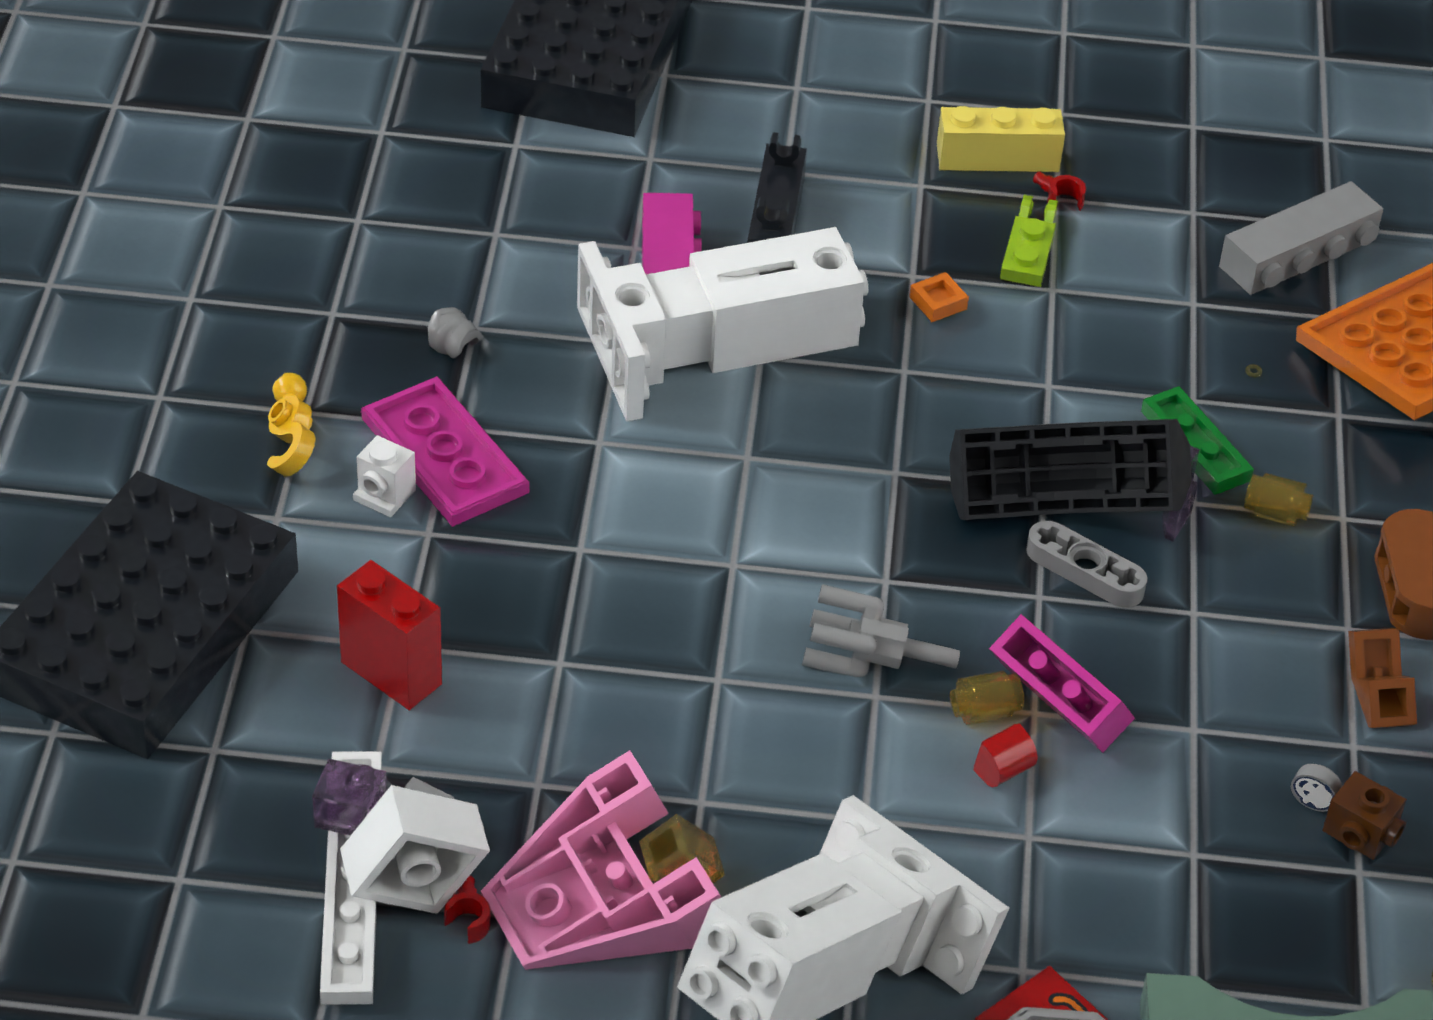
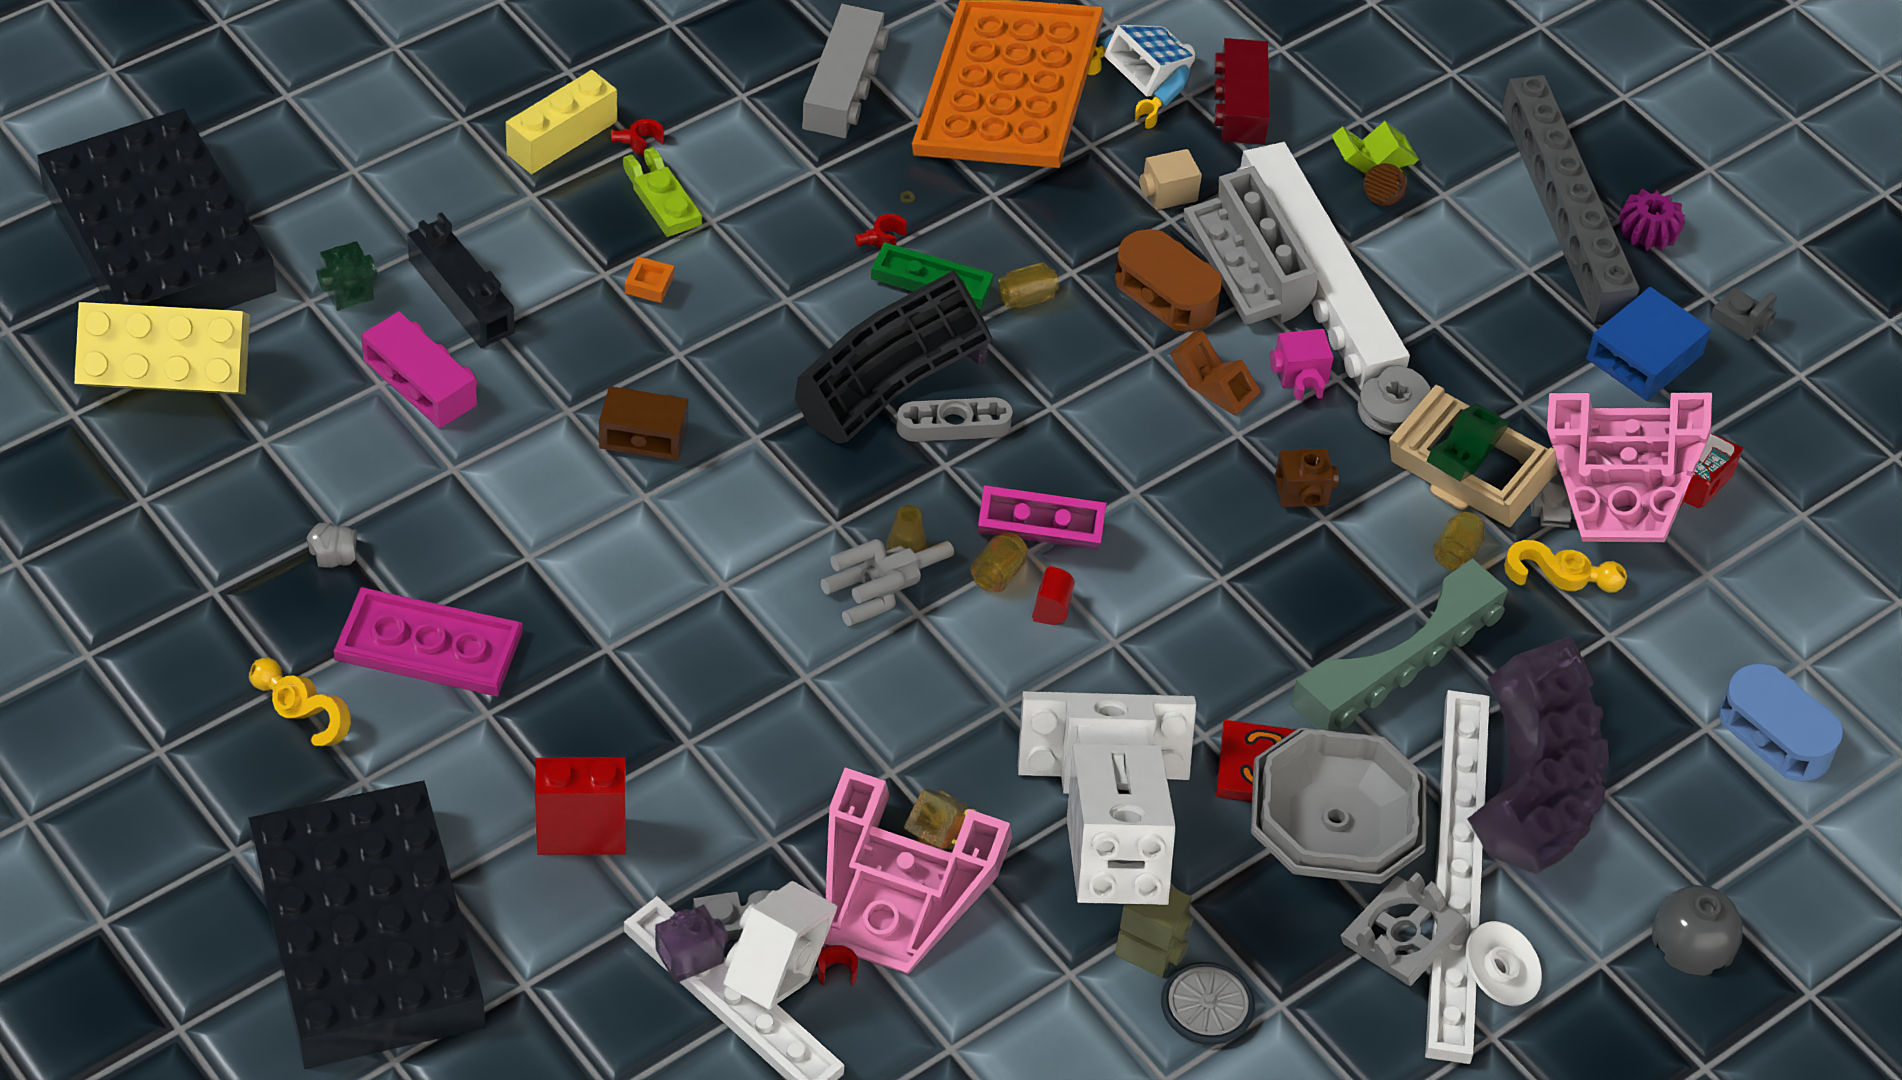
camera: 45 degrees left, 5 degrees up
(385, 476) = (419, 692): white brick -> none
(480, 114) = (162, 348): none -> light yellow brick
(690, 141) = (347, 275): none -> clear green brick
(724, 309) = (523, 396): white brick -> none
(798, 395) = (643, 423): none -> reddish brown brick
(928, 617) = (907, 530): none -> clear yellow cone
(1193, 376) = (883, 223): none -> red piece
(1315, 786) = (1255, 479): tile -> none

